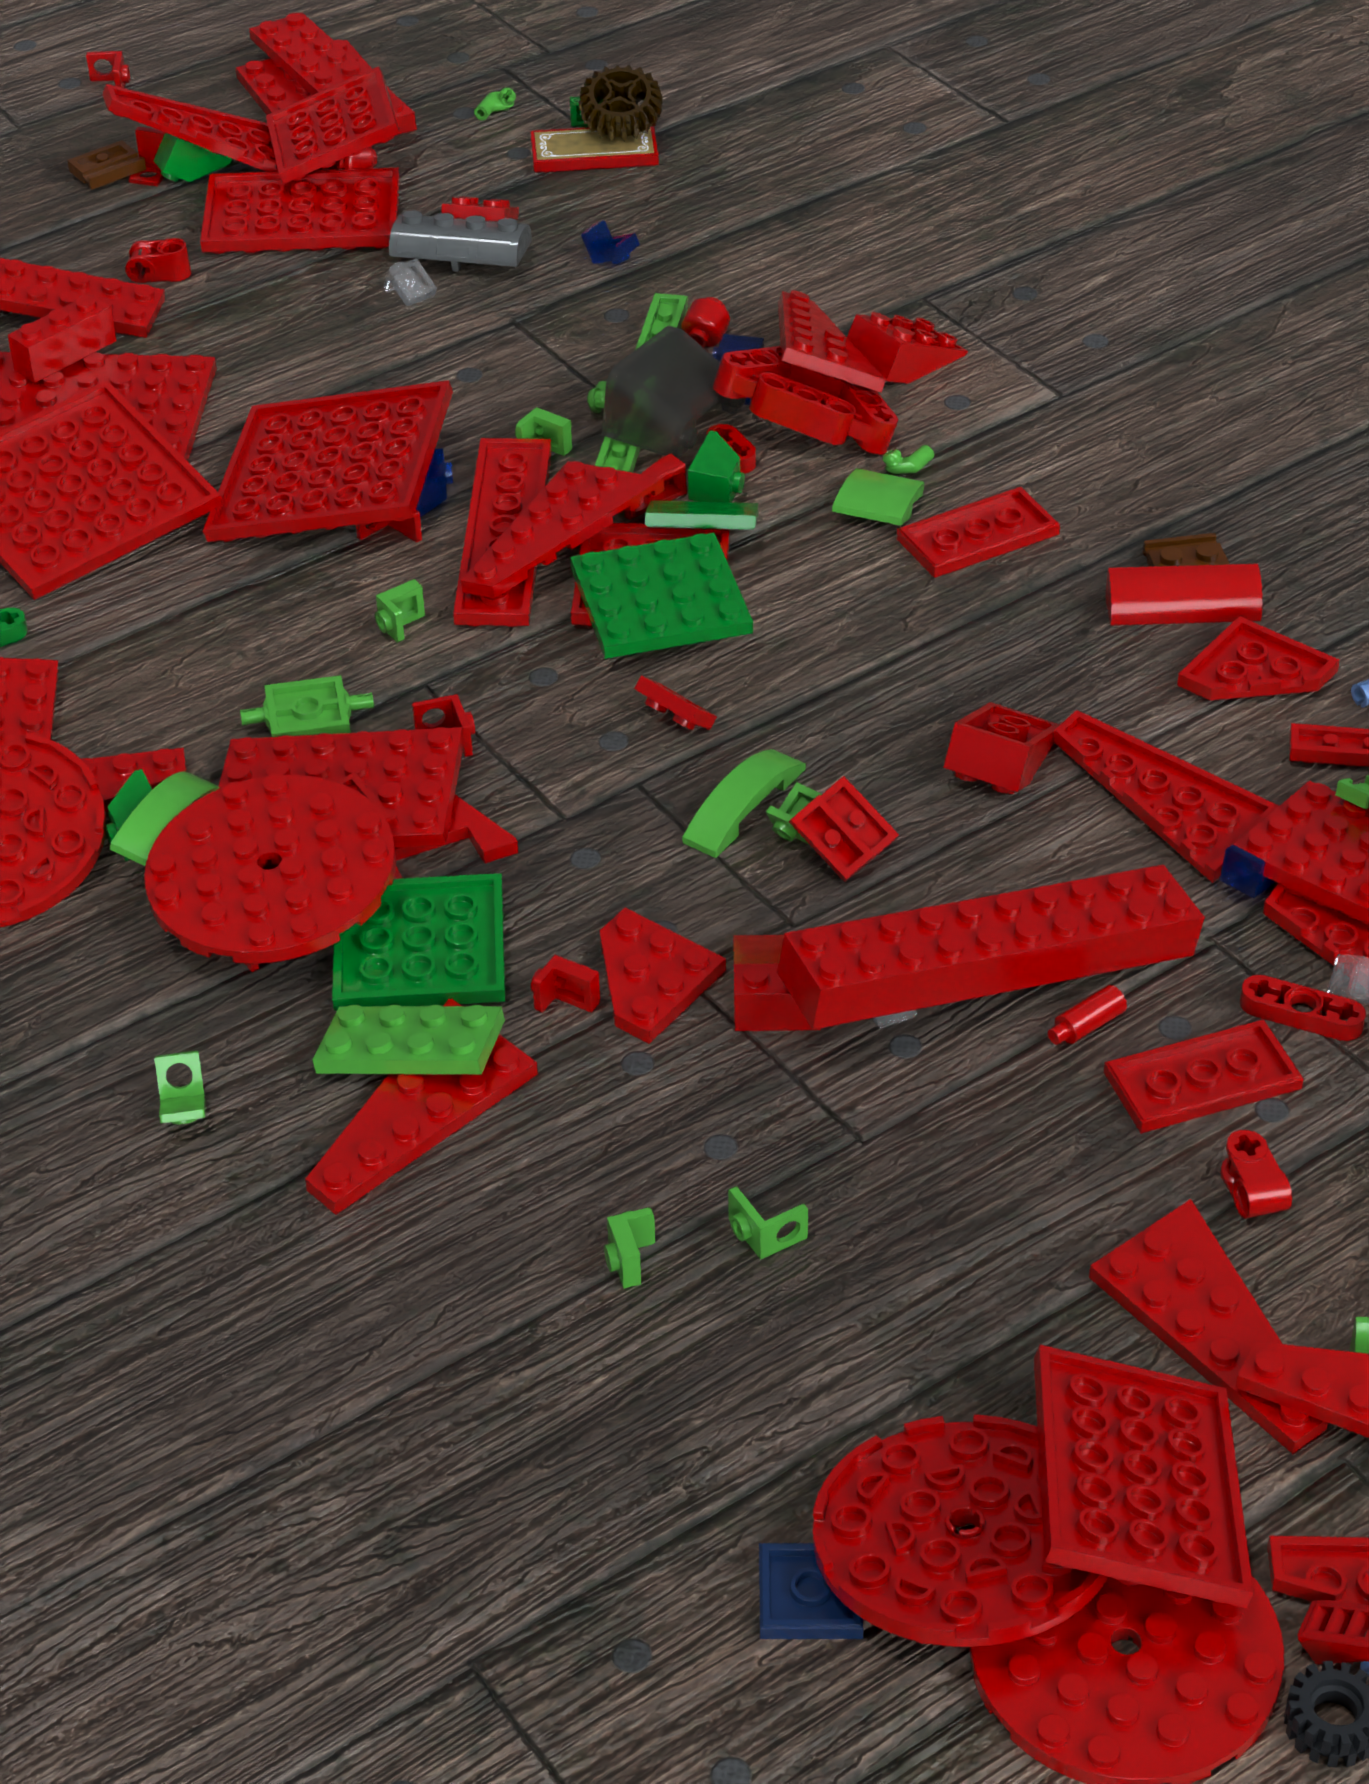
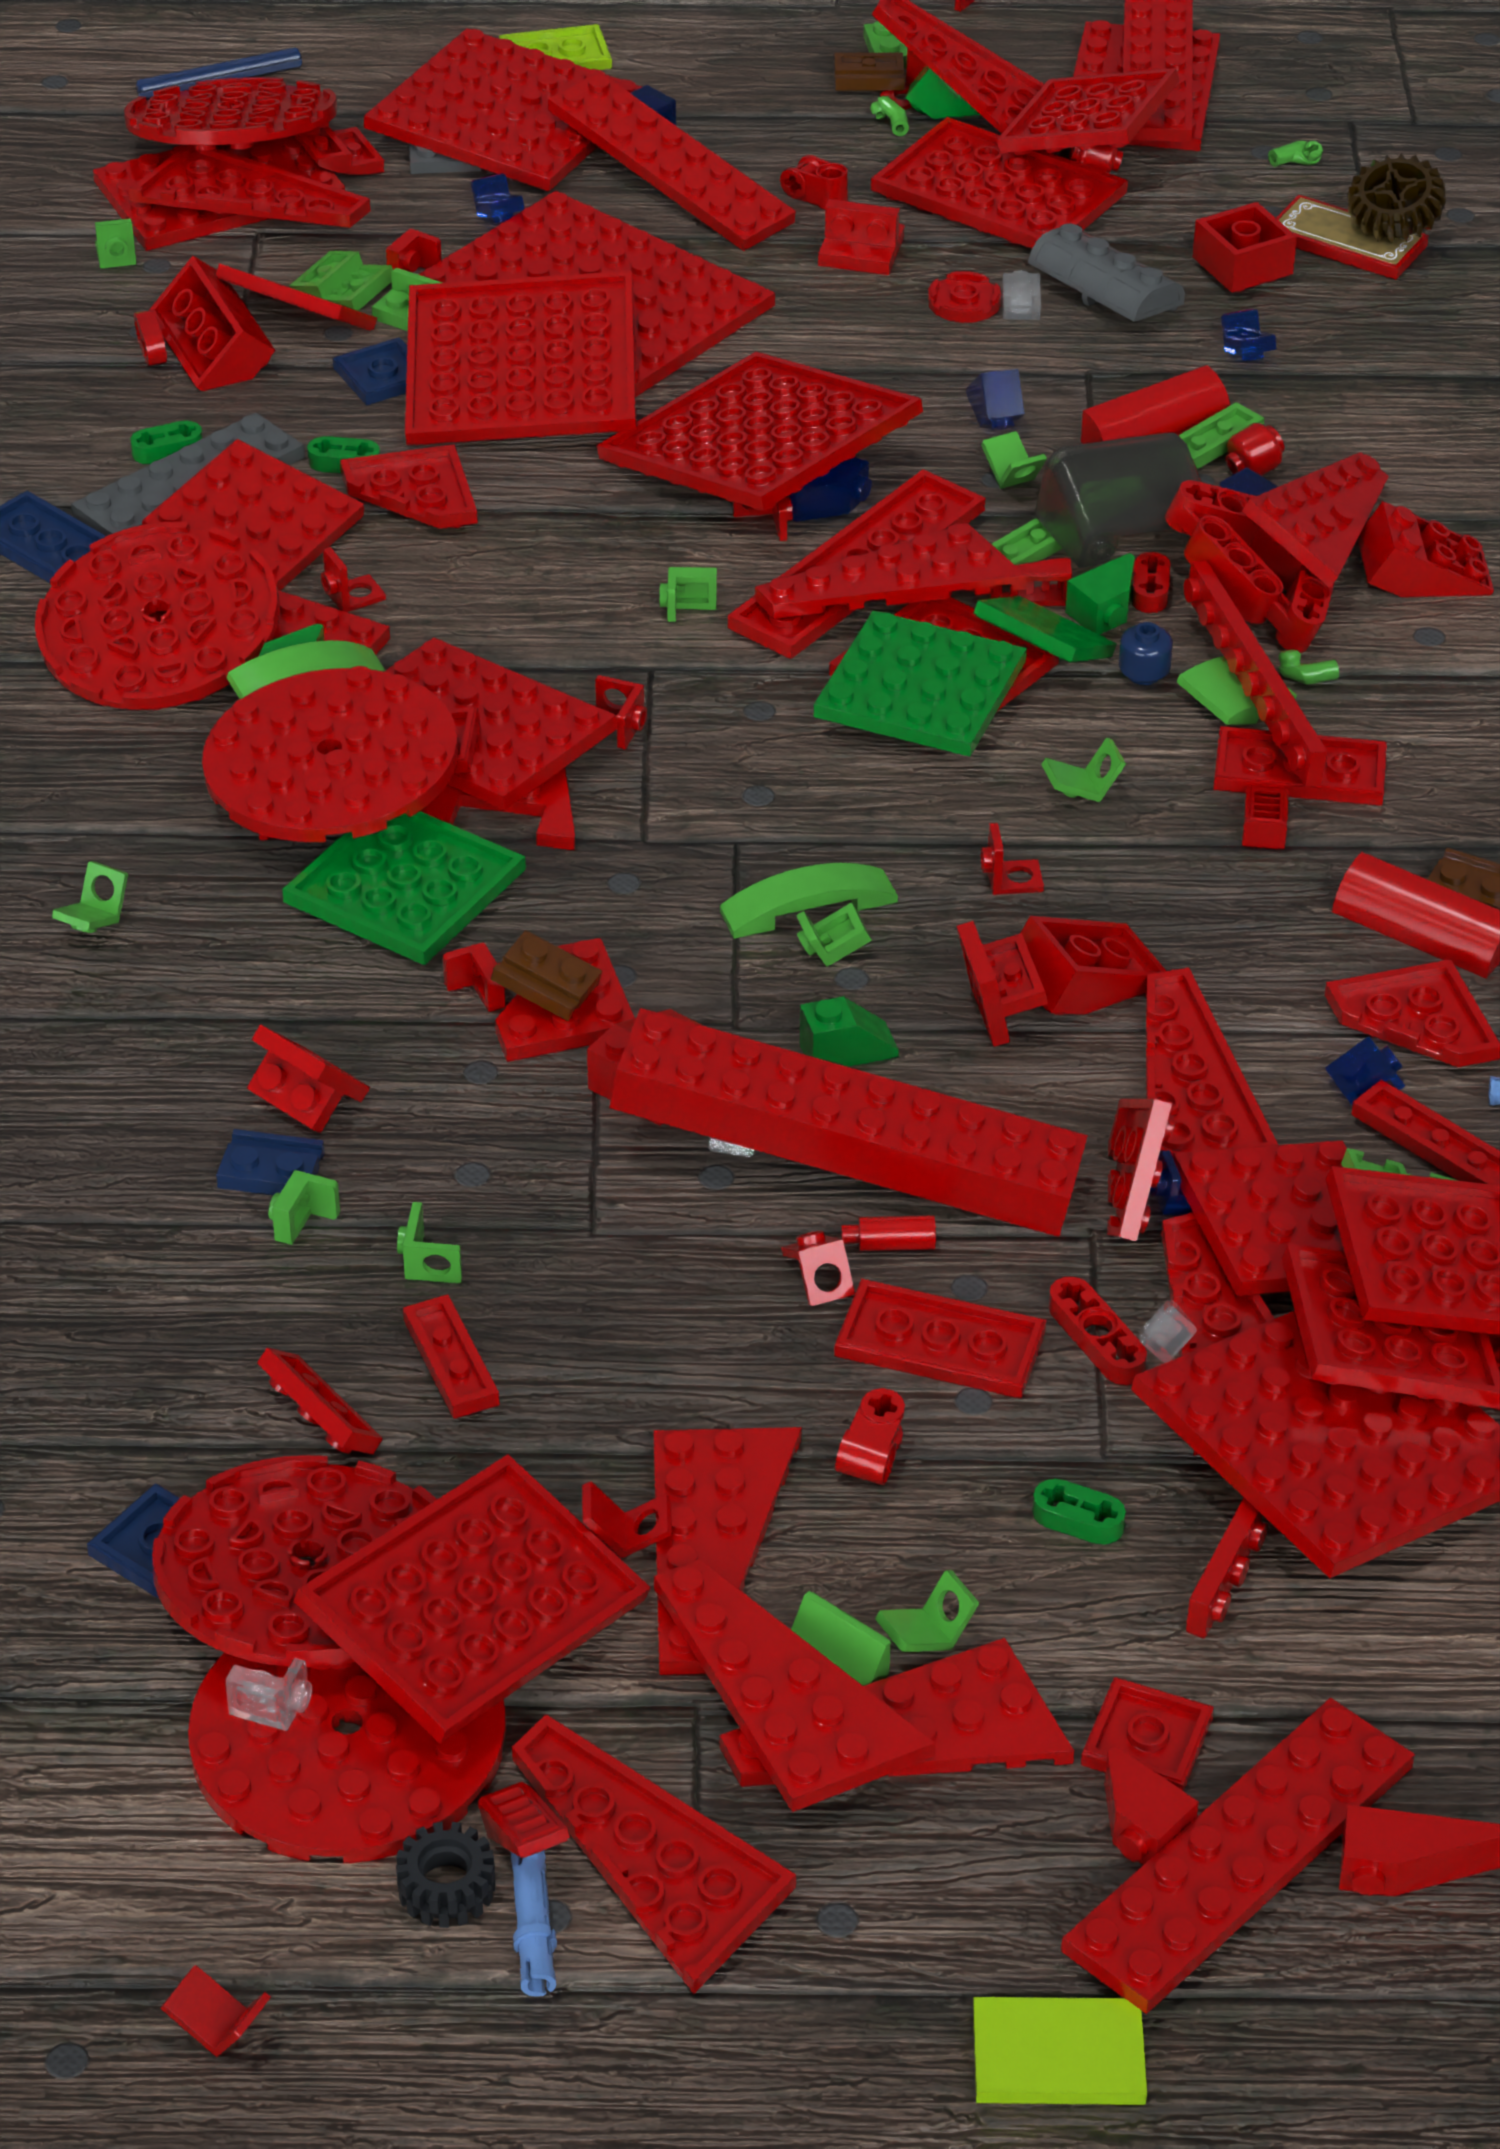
camera: 35 degrees right, 0 degrees up
(62, 337) = (644, 216): red brick -> none
(82, 624) = (414, 483): none -> red plate
(89, 137) = (883, 41): none -> bright green plate
(106, 730) = (337, 585): none -> red bracket
(162, 189) = (898, 117): none -> bright green arm
(239, 288) = (861, 237): none -> red bracket
(307, 707) = (522, 641): bright green plate -> none
(360, 302) = (964, 297): none -> red tile
(409, 1040) = (304, 952): bright green plate -> none
(410, 1118) = (310, 1002): red wing -> none
(478, 364) = (997, 398): none -> clear blue slope
(490, 209) = (1154, 252): red plate -> none
(520, 1145) = (301, 1080): none -> red bracket
(527, 397) = (1010, 460): none -> bright green bracket
(542, 180) = (1244, 247): none -> red brick
(546, 425) = (992, 484): bright green bracket -> none
(556, 1227) = (266, 1161): none -> dark blue plate
(604, 328) = (1157, 409): none -> red brick
(633, 954) = (546, 975): none -> reddish brown plate
(663, 698) = (835, 786): red plate -> none
(794, 499) = (1145, 653): none -> dark blue head
(818, 1397) = (319, 1402): none -> red plate
(844, 828) = (851, 962): red slope -> none
(845, 612) = (1086, 782): none -> bright green bracket
(858, 698) = (998, 870): none -> red bracket
(876, 1298) = (451, 1356): none -> red plate
(888, 887) = (844, 1033): none -> green slope
(897, 475) = (1256, 673): none -> red plate
(969, 786) = (1000, 979): none -> red bracket
(998, 578) = (1265, 817): none -> red slope
(1063, 1058) = (813, 1251): none -> bracket
(1068, 1660) = (268, 1698): none -> clear bracket
(1145, 1351) = (620, 1528): none -> red bracket
(1211, 864) = (1135, 1146): none -> red plate
(1268, 723) = (1363, 1068): none -> clear blue bracket

